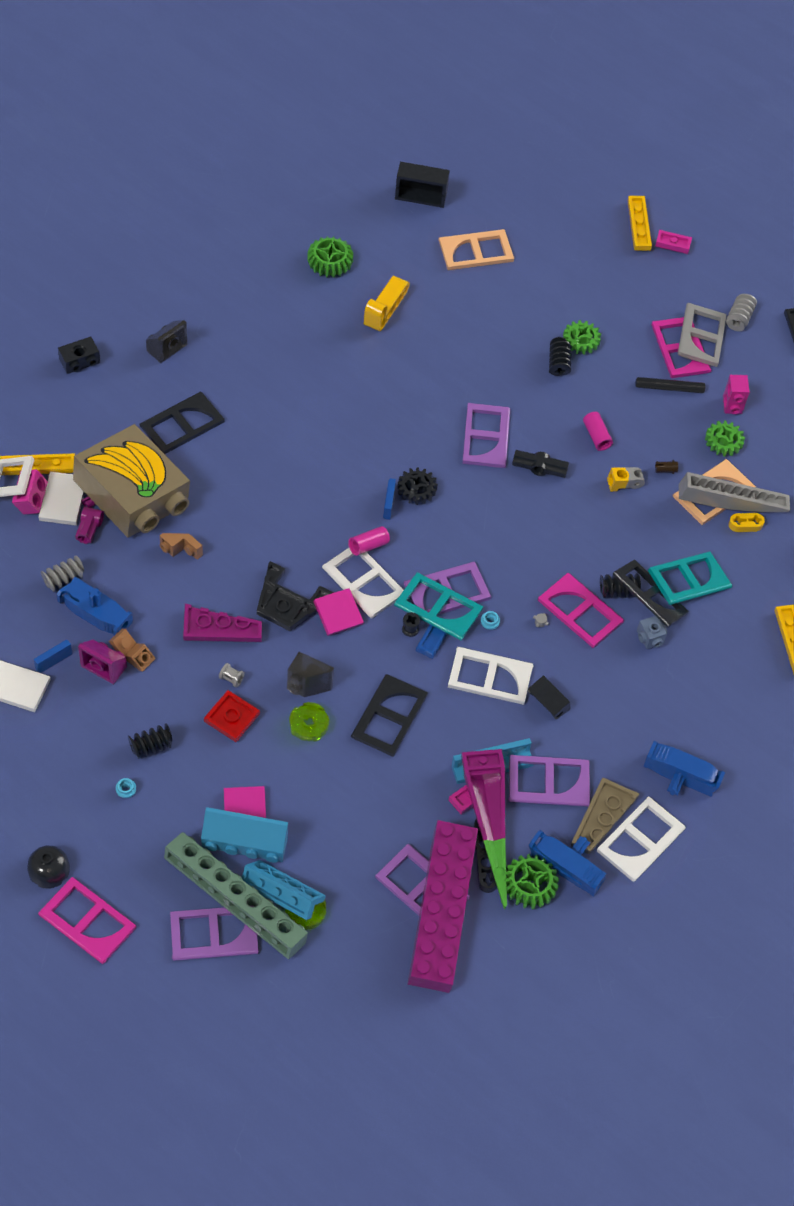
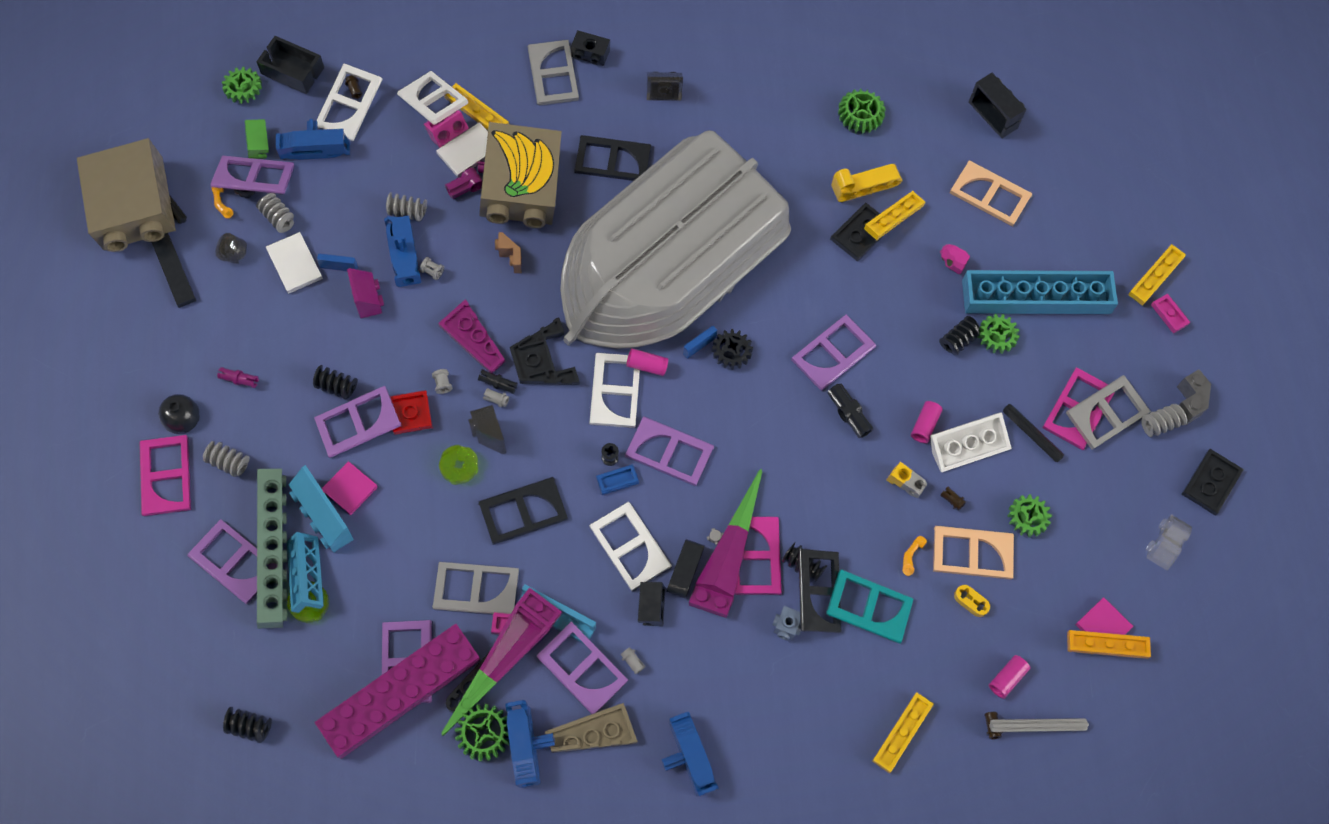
camera: 45 degrees right, 10 degrees up
(38, 390) = (537, 54): none -> light grey window
(66, 801) = (238, 377): none -> magenta pin
(125, 782) = (286, 397): medium azure plate -> none
(127, 864) = (225, 459): none -> light grey piece
(133, 603) = (425, 268): none -> light grey bush
(135, 653) = (395, 303): medium nougat slope -> none
(224, 735) = (386, 422): none -> medium lavender window
(273, 642) = (497, 381): none -> black pin
(284, 654) = (496, 397): none -> light grey pin
(300, 445) = (670, 245): none -> light grey piece
(338, 612) = (567, 398): dark pink tile -> none
(357, 1028) = (246, 726): none -> black piece
(417, 340) = (852, 235): none -> black tile
(431, 310) = (894, 215): none -> yellow plate
(445, 787) = (501, 604): none -> light grey window
(454, 627) = (639, 485): teal window -> none
(490, 615) = (675, 497): medium azure plate -> none
(501, 309) = (954, 257): none -> dark pink rock
(545, 655) = (685, 568): none -> black beam
(576, 645) = (719, 578): none -> magenta plate
(576, 746) = (632, 660): none -> light grey pin
(579, 289) = (1039, 292): none -> dark azure brick
(636, 865) = (576, 794): white window -> none
(638, 422) = (970, 442): none -> white slope
(684, 534) = (908, 568): none -> light orange piece
(730, 495) = (979, 569): light grey slope -> none
(736, 394) = (1076, 486): dark pink brick -> none
(743, 279) = (1197, 393): none -> flat silver brick

